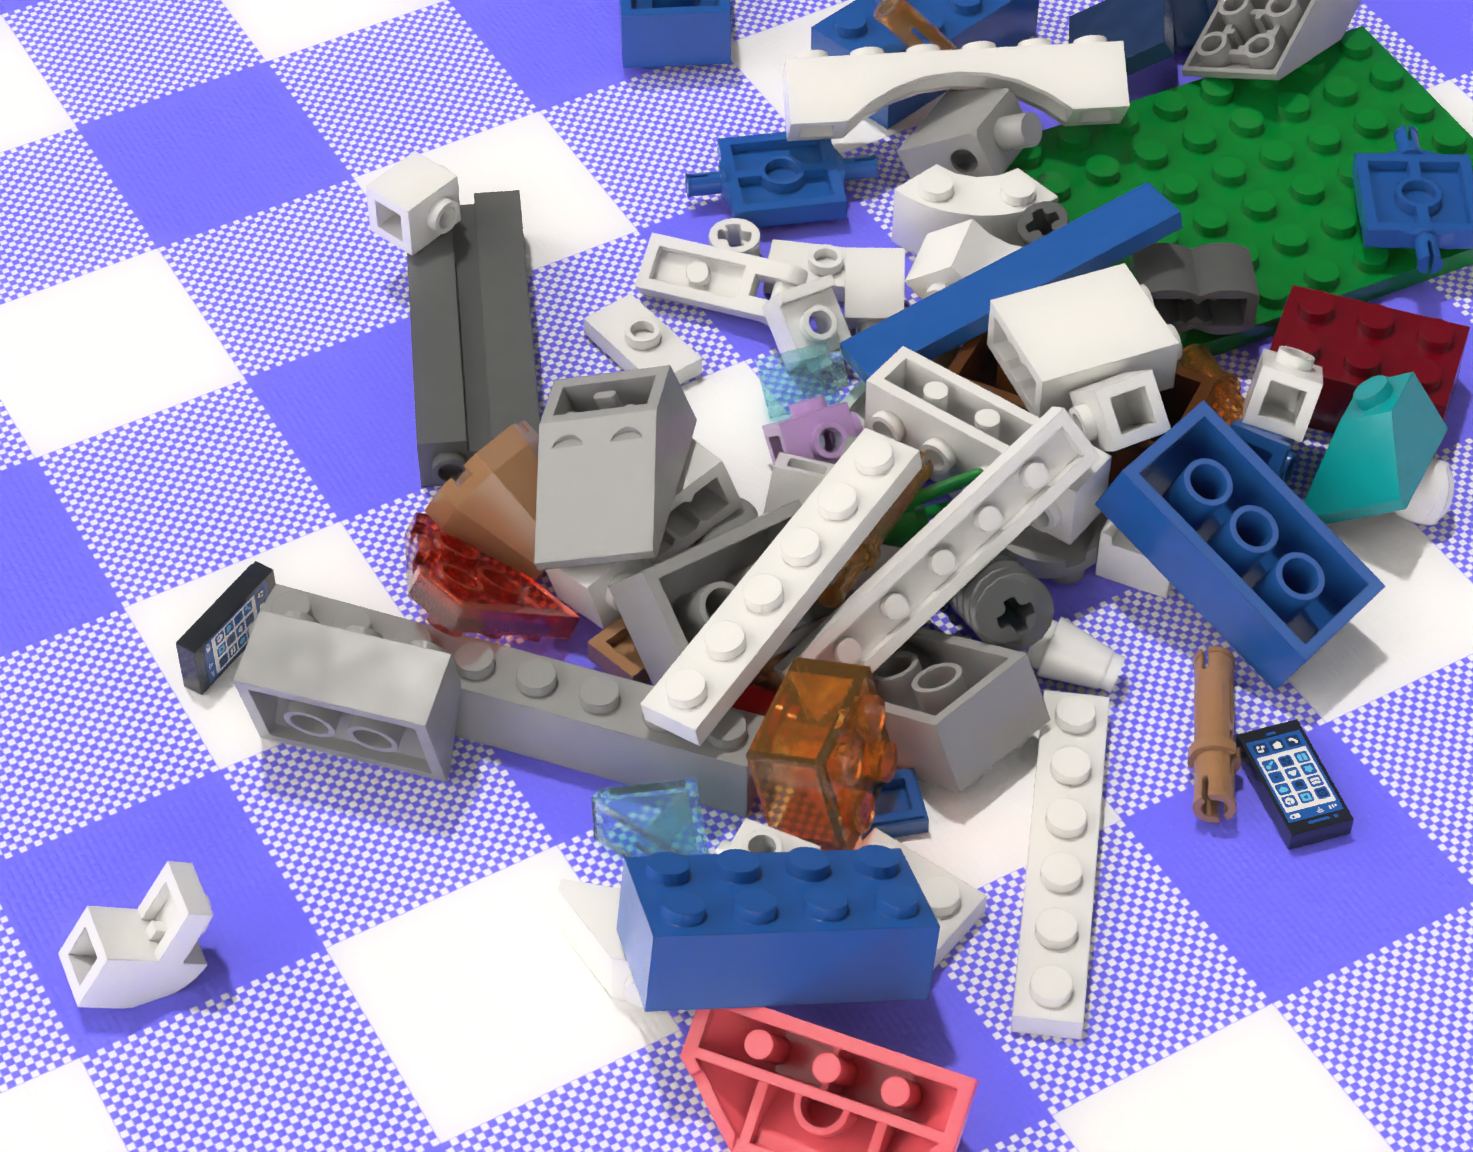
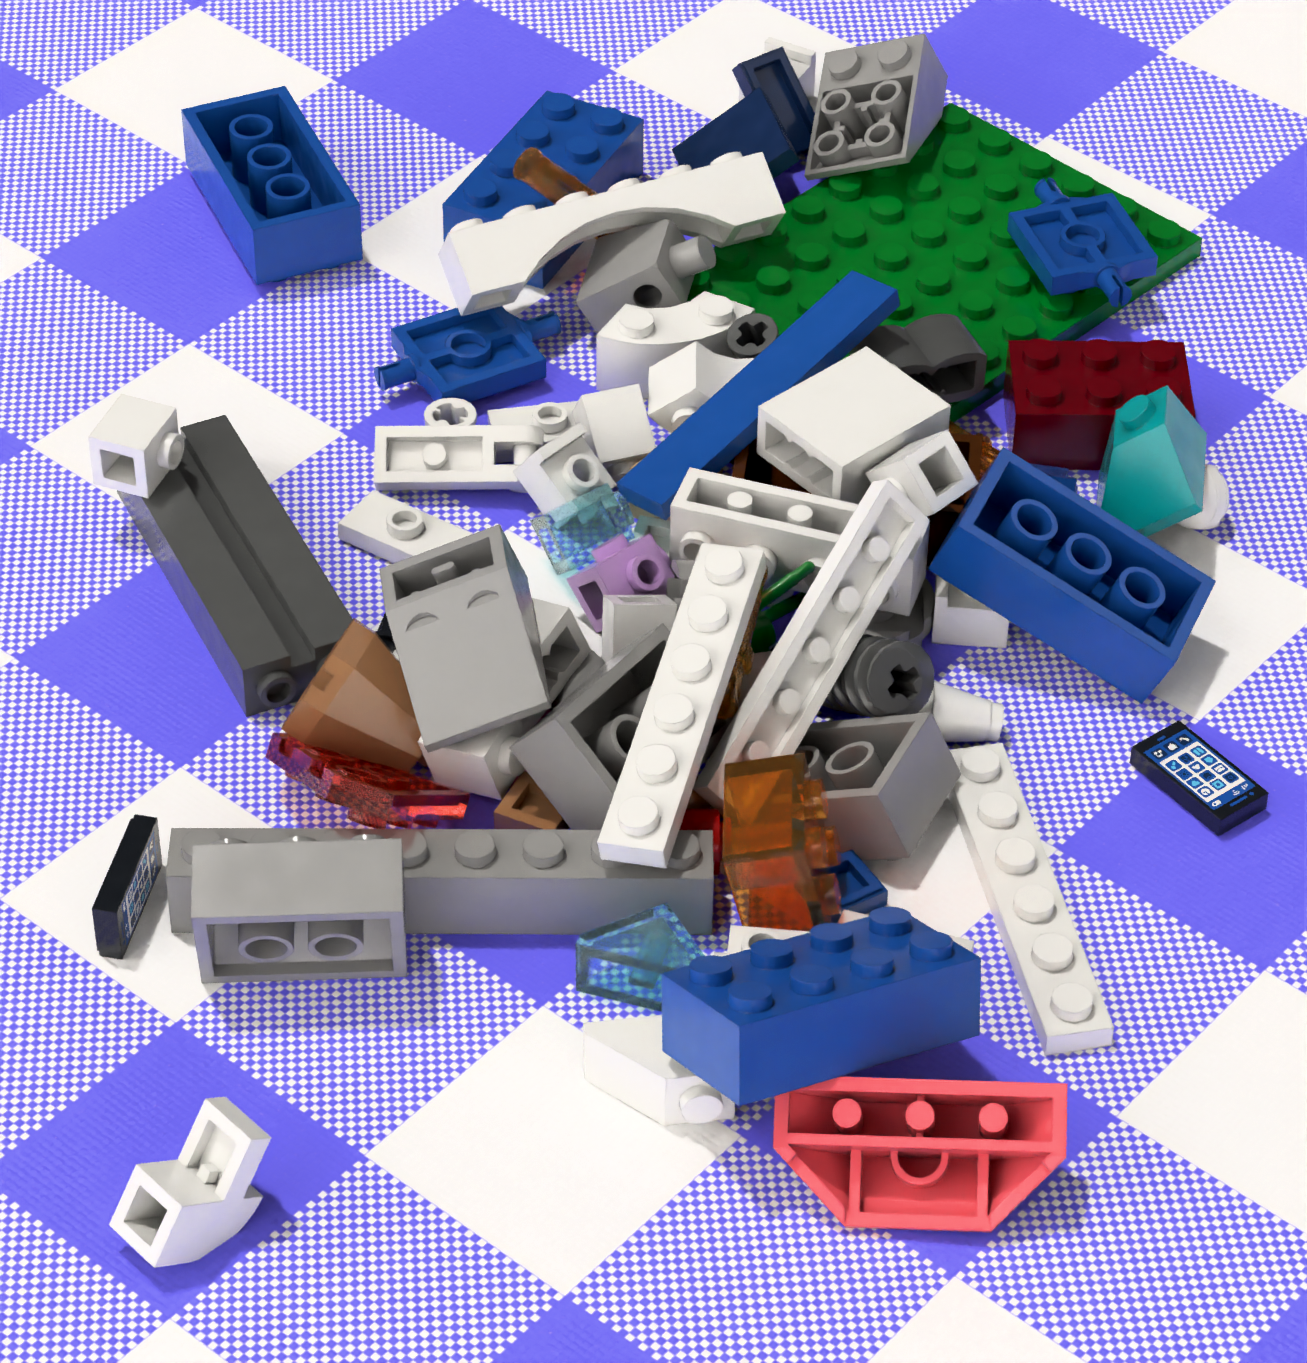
camera: 20 degrees left, 5 degrees down
(1214, 751) = (1118, 768): medium nougat pin -> none
(1283, 392) = (1050, 433): white brick -> none

